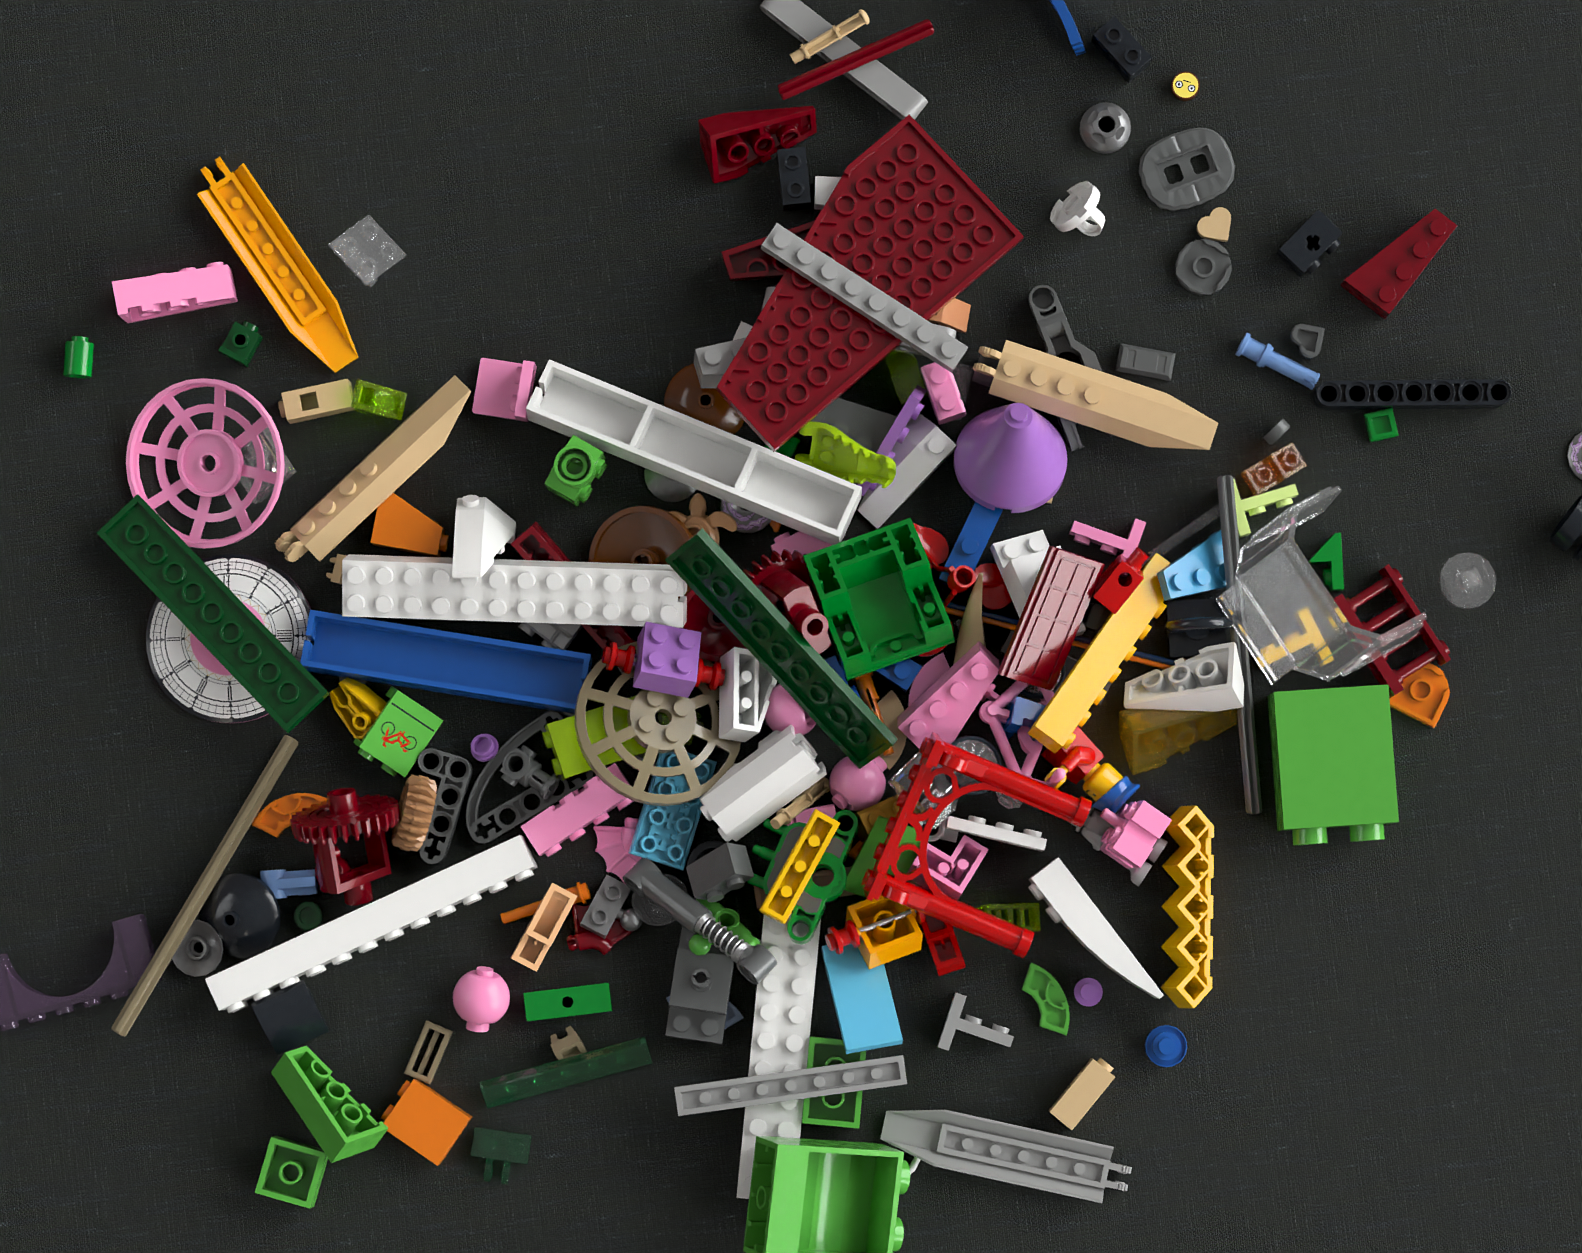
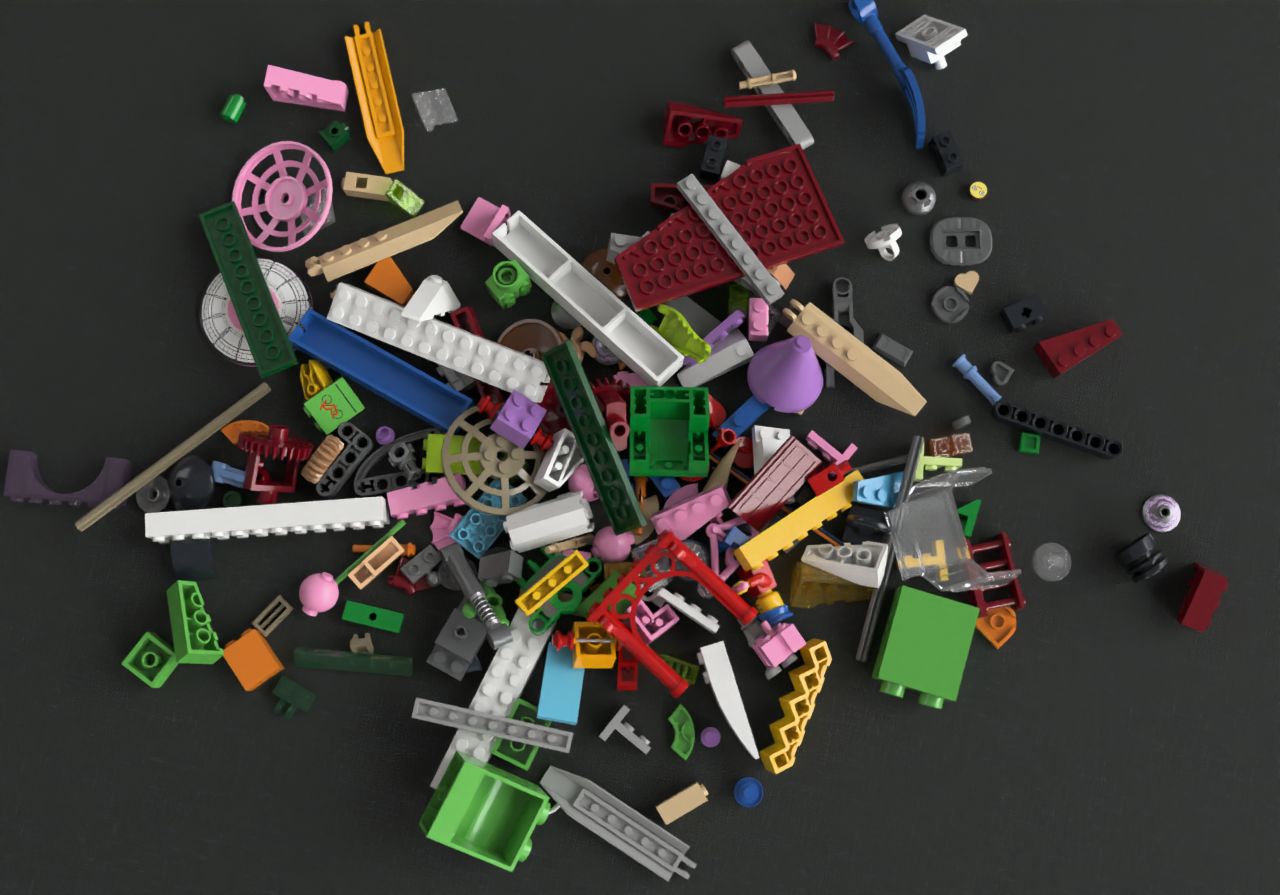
camera: 15 degrees right, 5 degrees down
(528, 915) = (397, 527): none -> bright green axle

